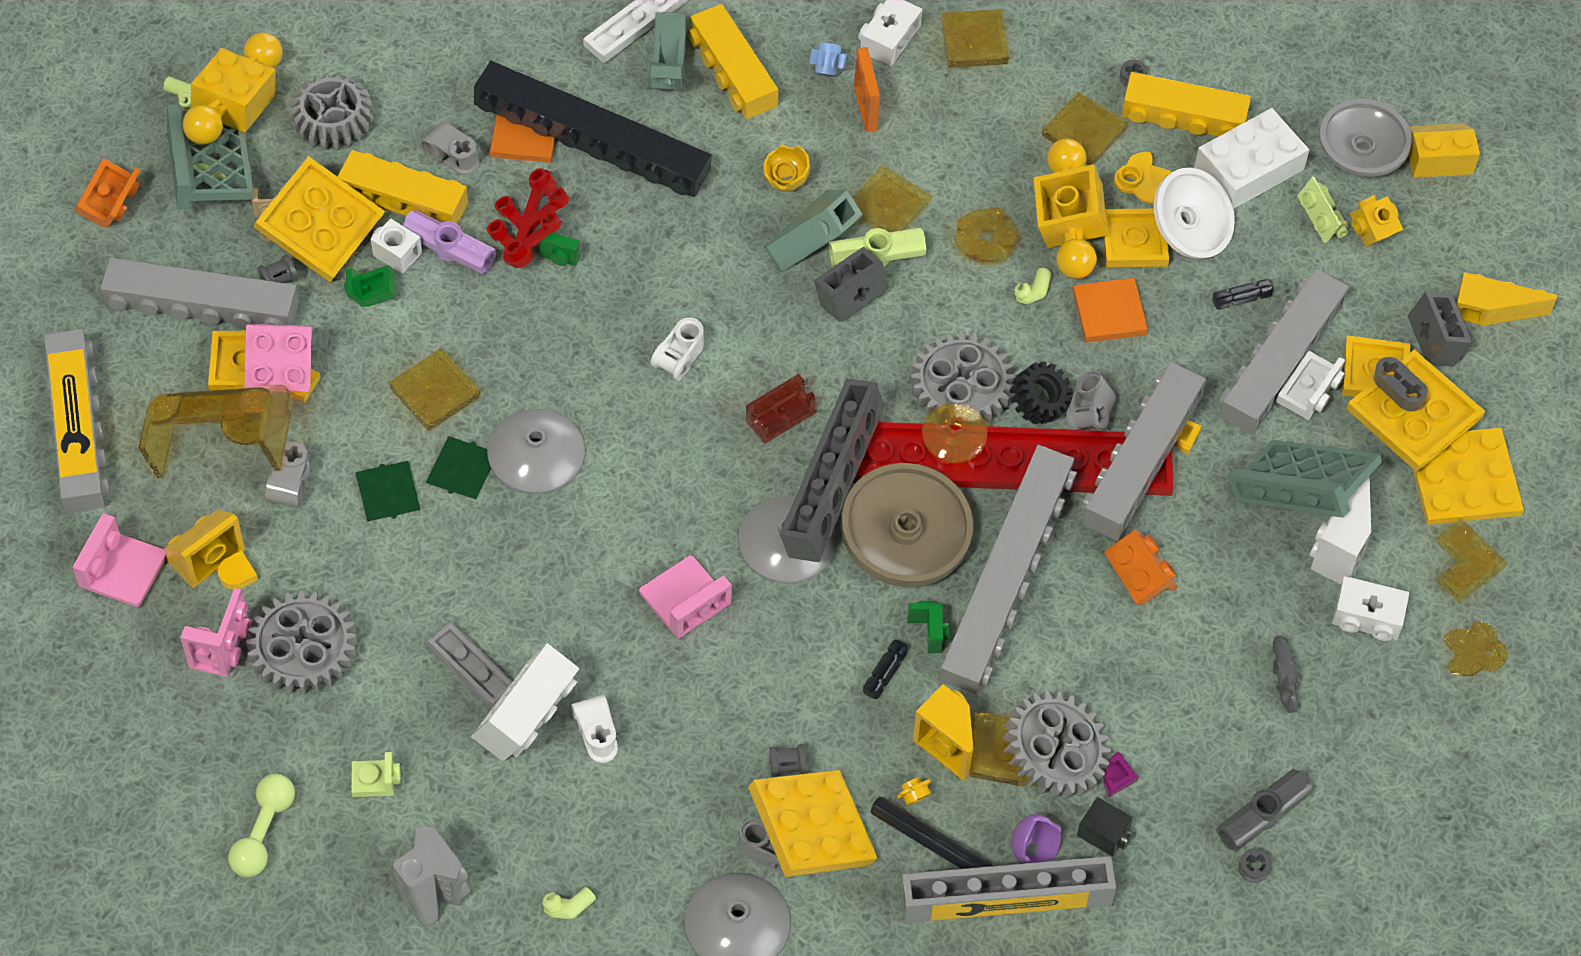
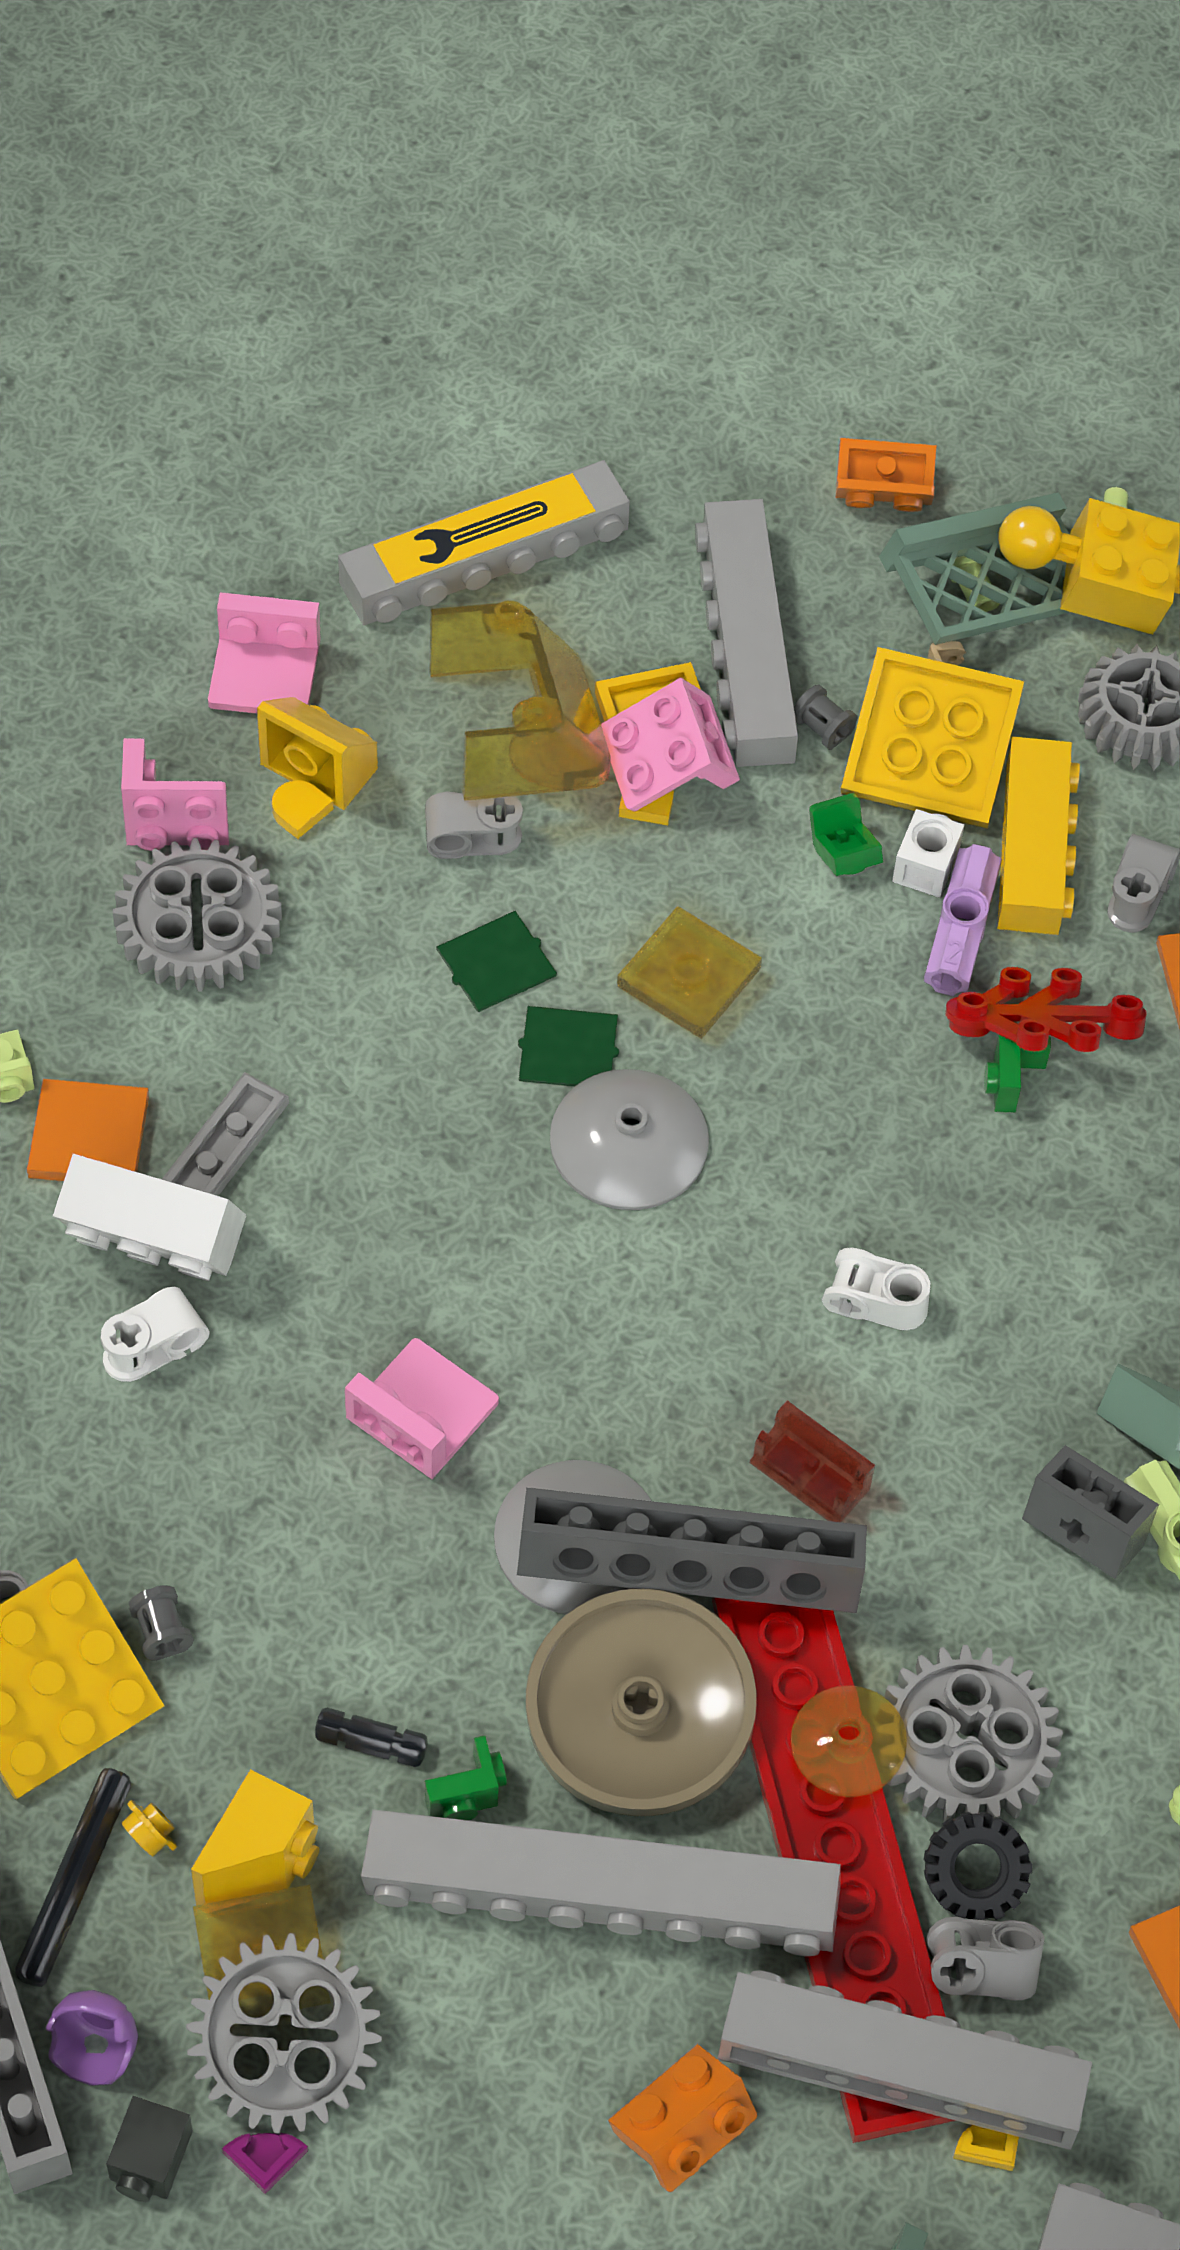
camera: 75 degrees right, 0 degrees up
(438, 738) = (86, 1121): none -> orange tile

